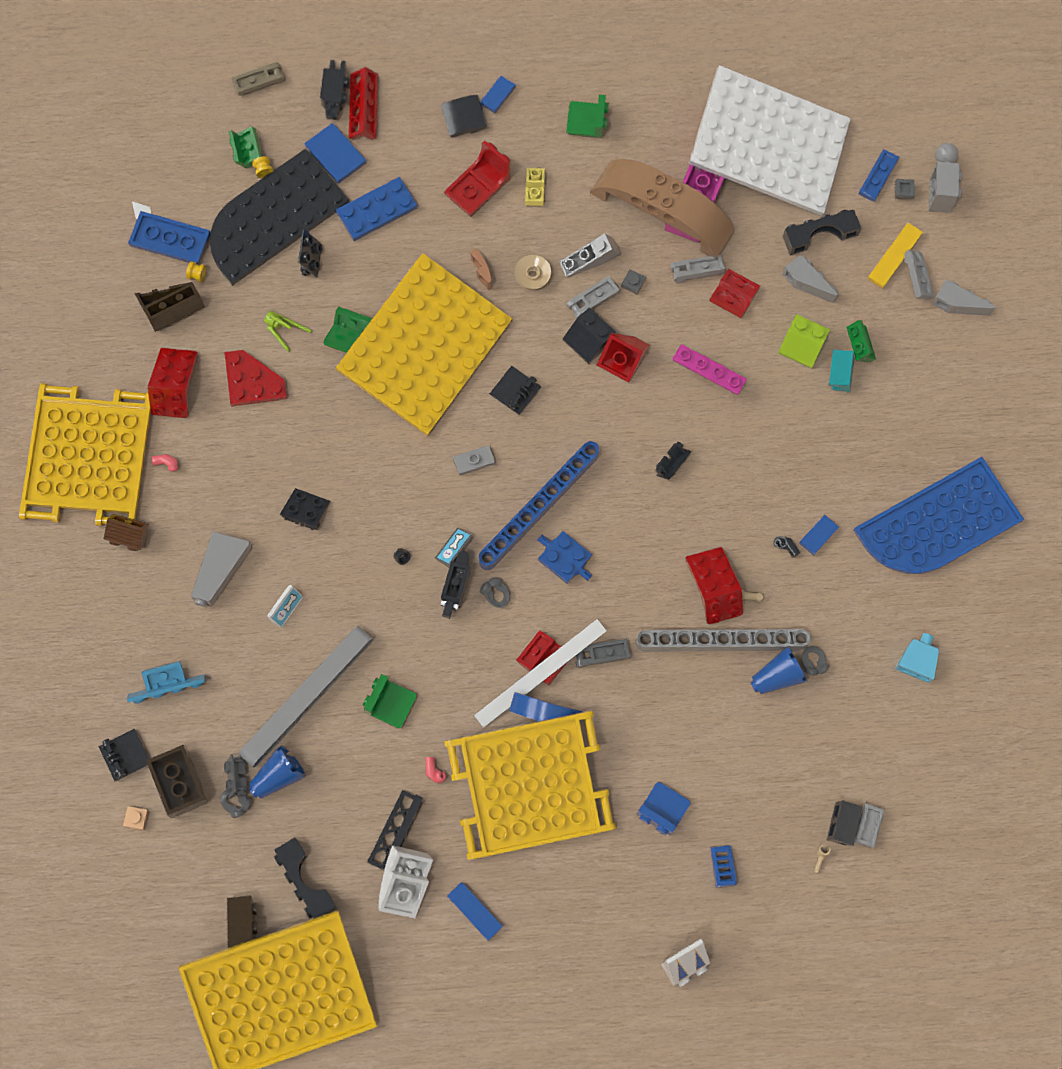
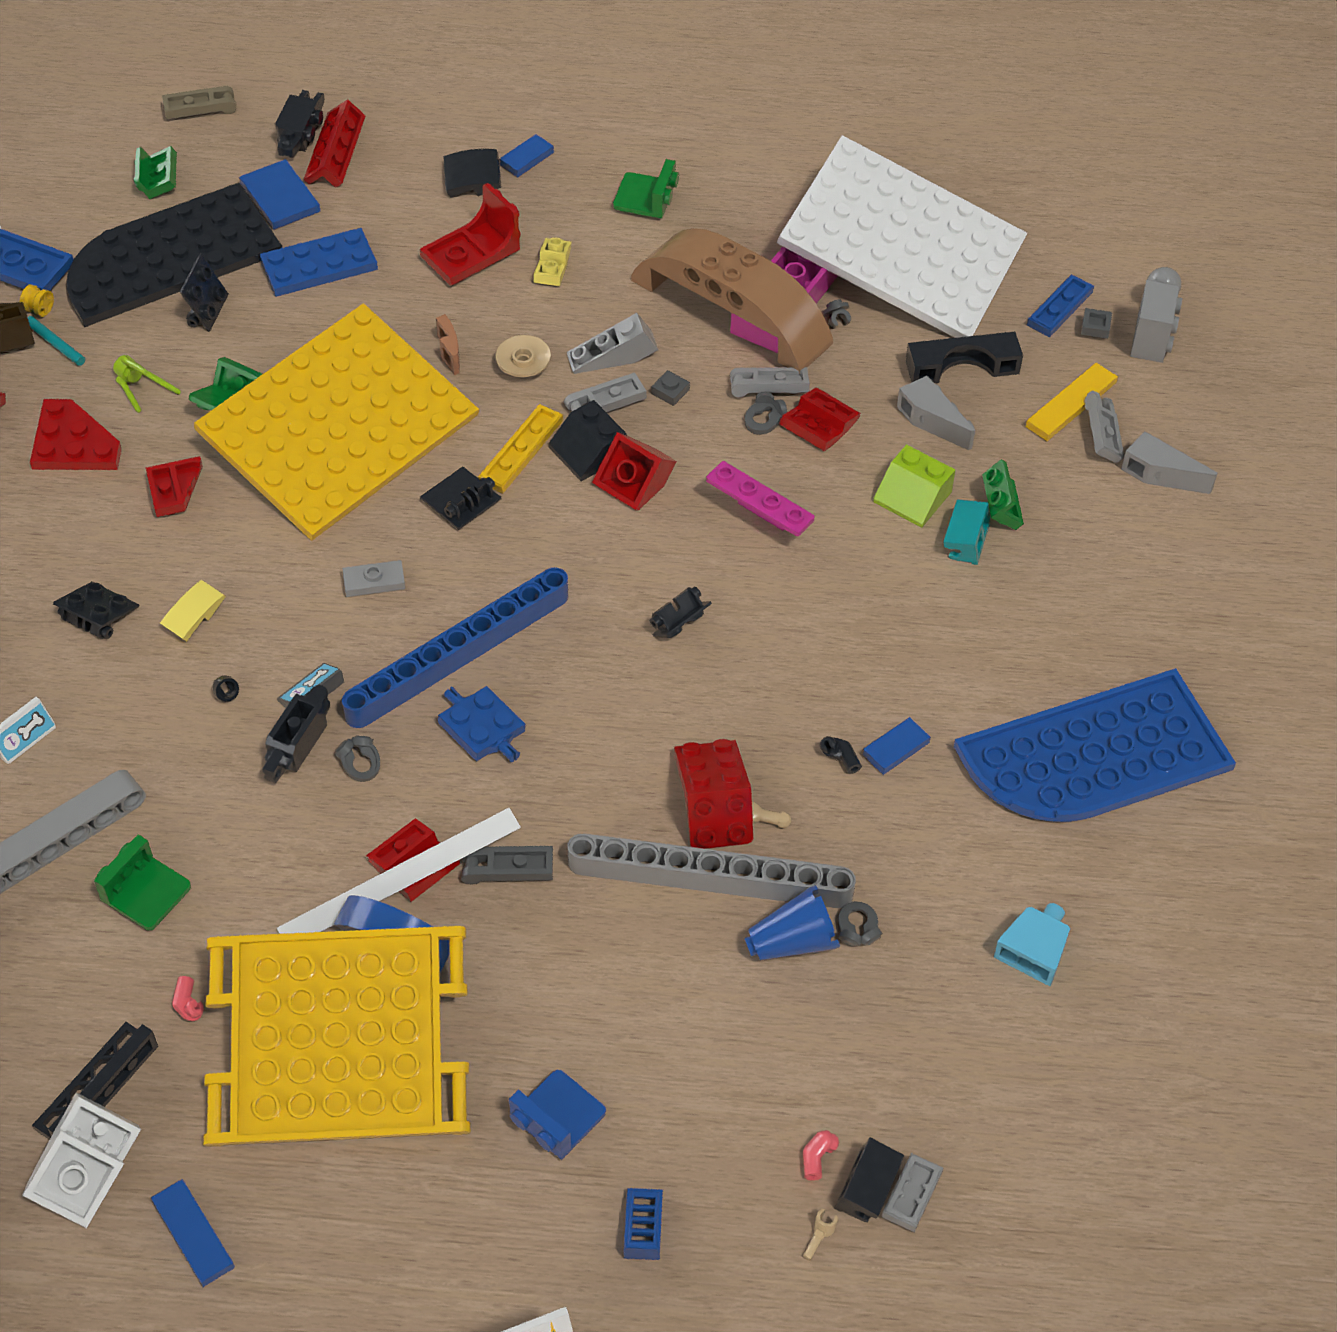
camera: 10 degrees right, 20 degrees down
(219, 303) = (56, 341): none -> teal bar
(262, 166) = (171, 193): yellow wheel -> none
(328, 408) = (173, 484): none -> red wing
(367, 502) = (192, 608): none -> light yellow slope
(545, 344) = (522, 447): none -> yellow tile
(706, 292) = (764, 402): none -> dark grey piece
(731, 202) = (837, 309): none -> dark grey plate
(811, 808) = (814, 1150): none -> coral arm

